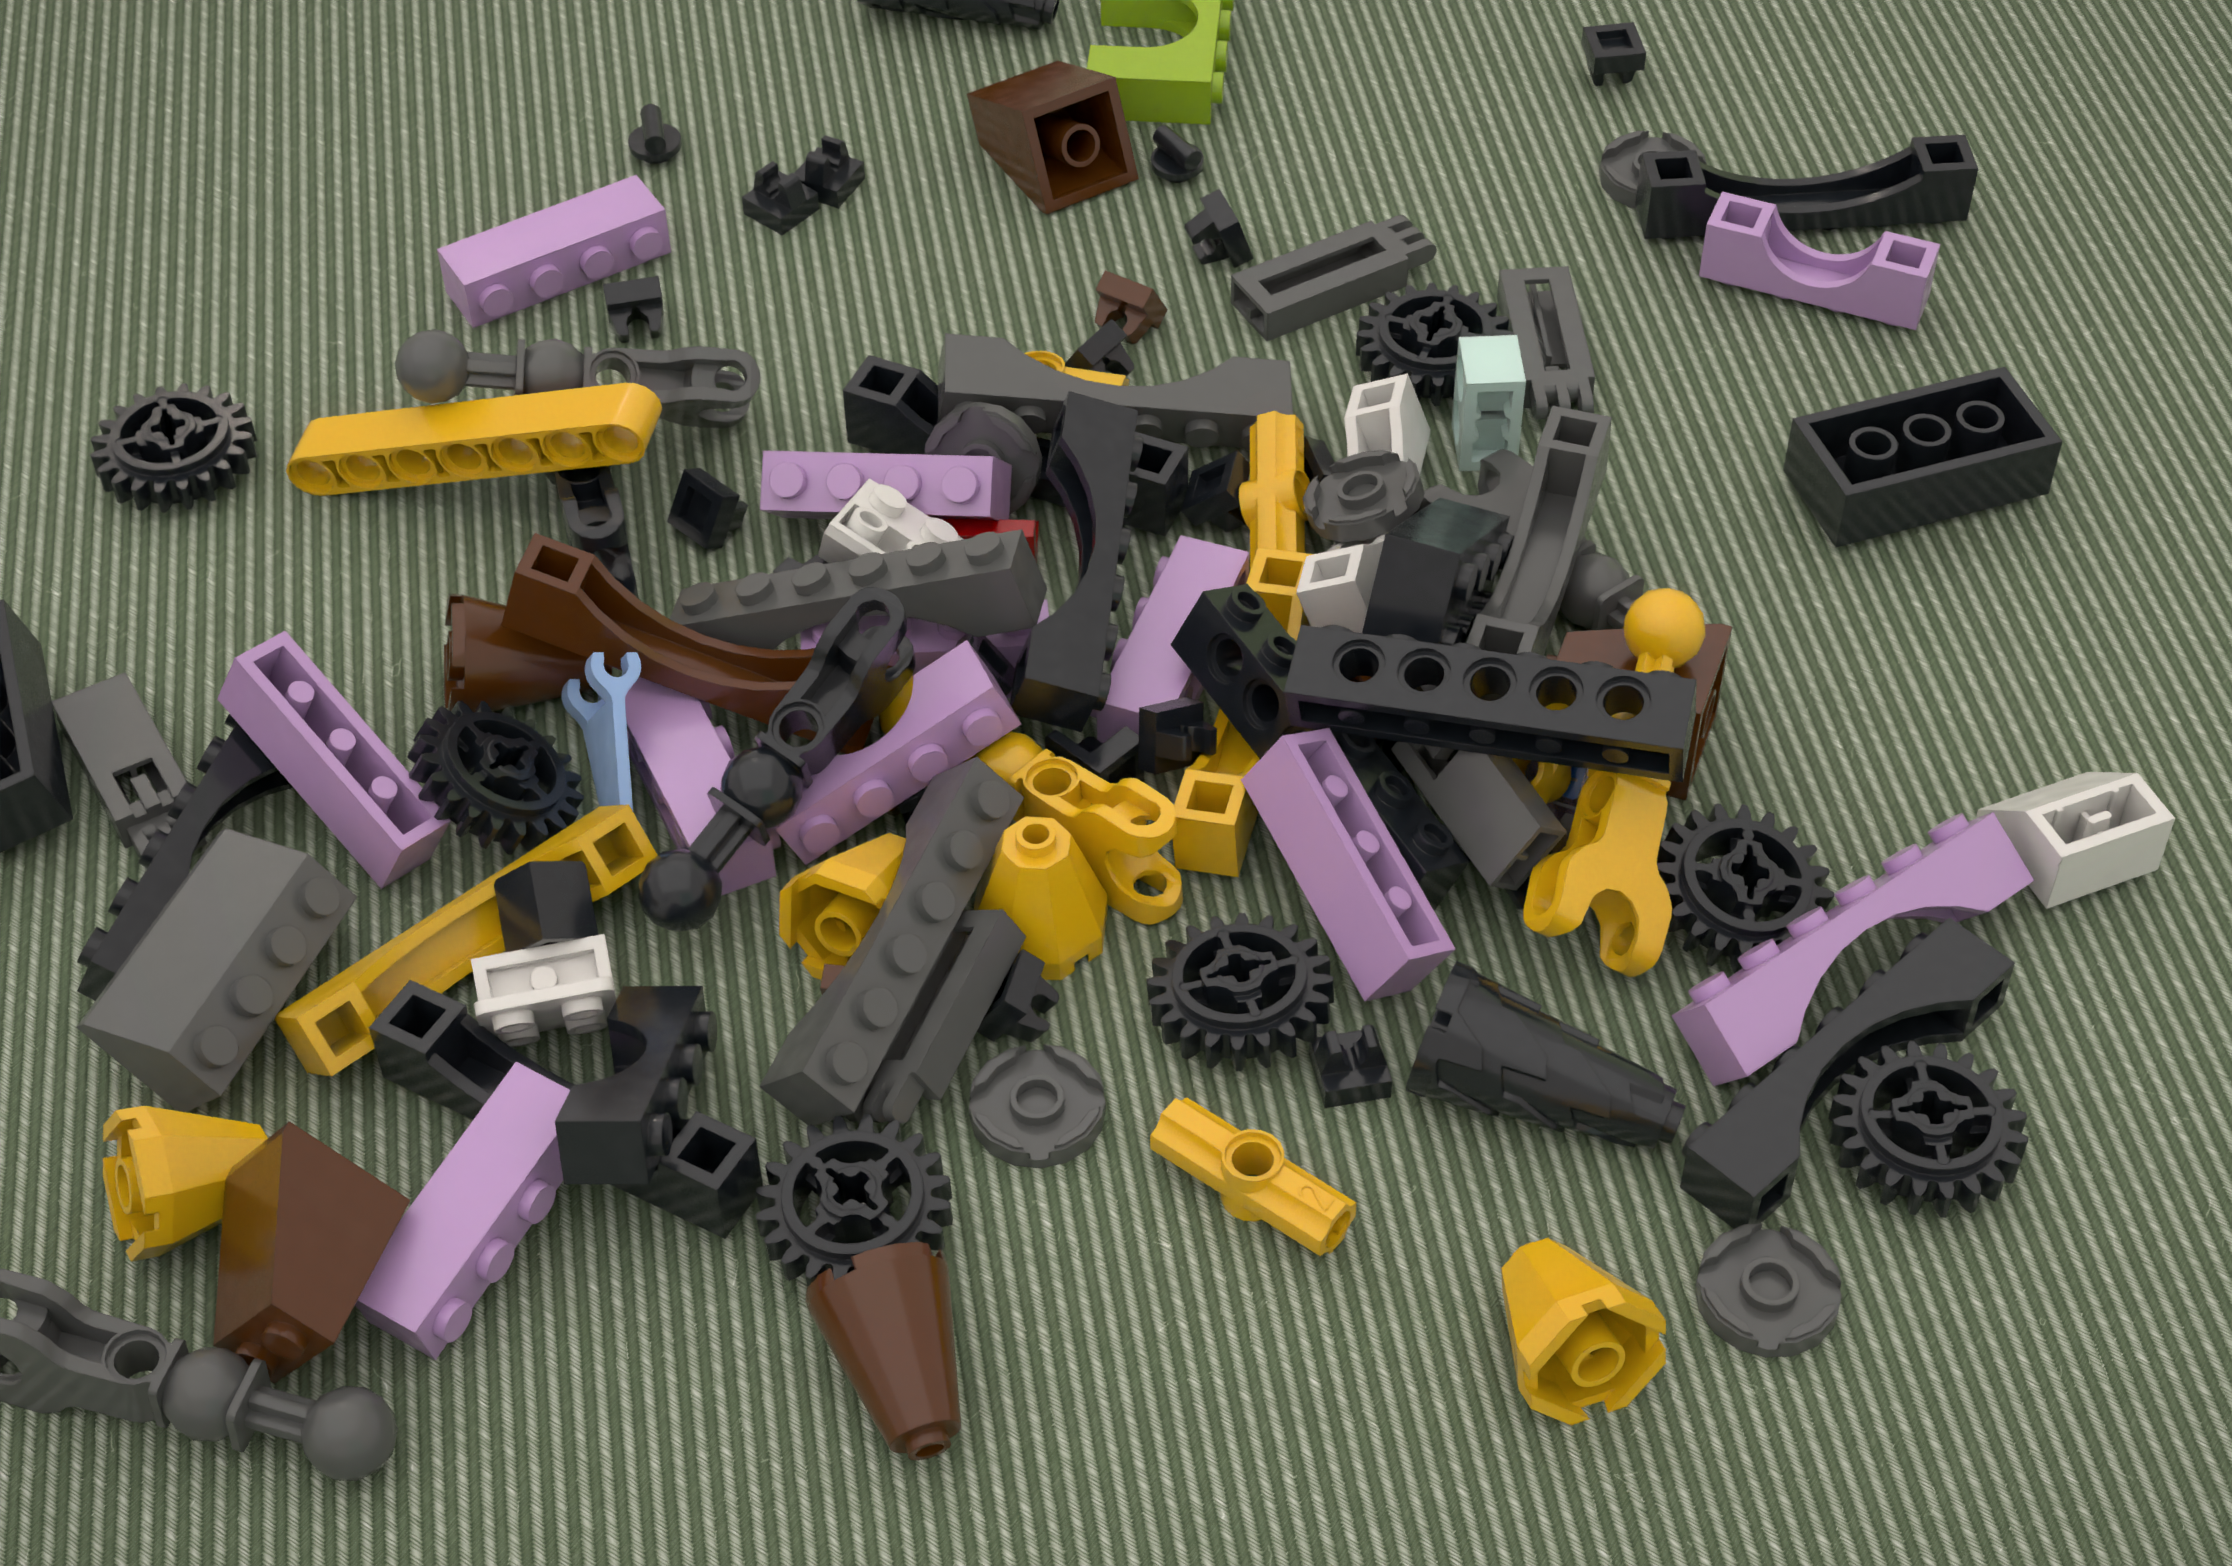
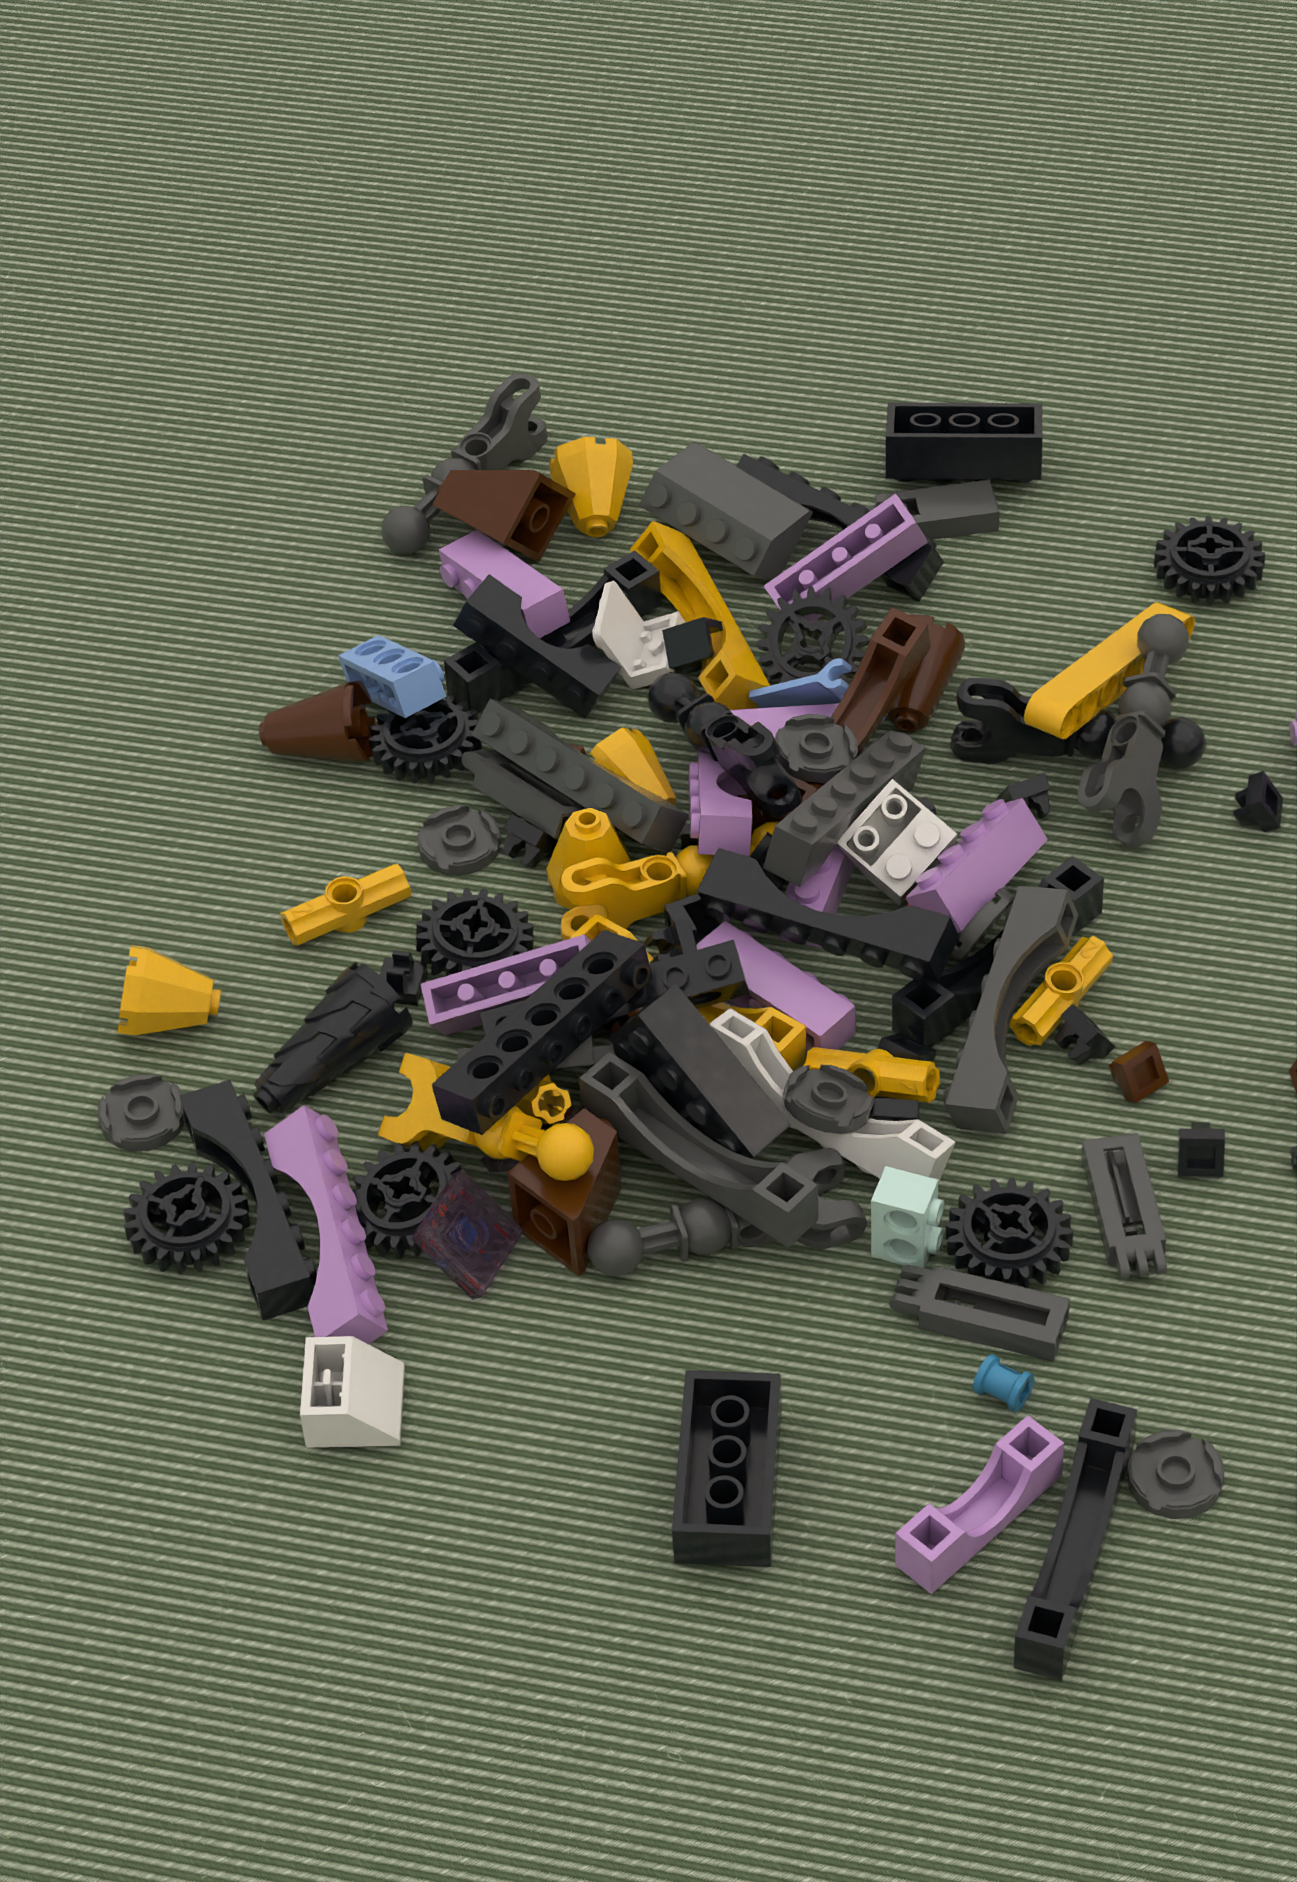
camera: 115 degrees right, 0 degrees up
(757, 658) = (815, 747): none -> dark grey tile
(766, 1308) = (394, 675): none -> light blue brick
(1645, 292) = (1003, 1383): none -> dark azure bush
(1767, 790) = (467, 1234): none -> tile

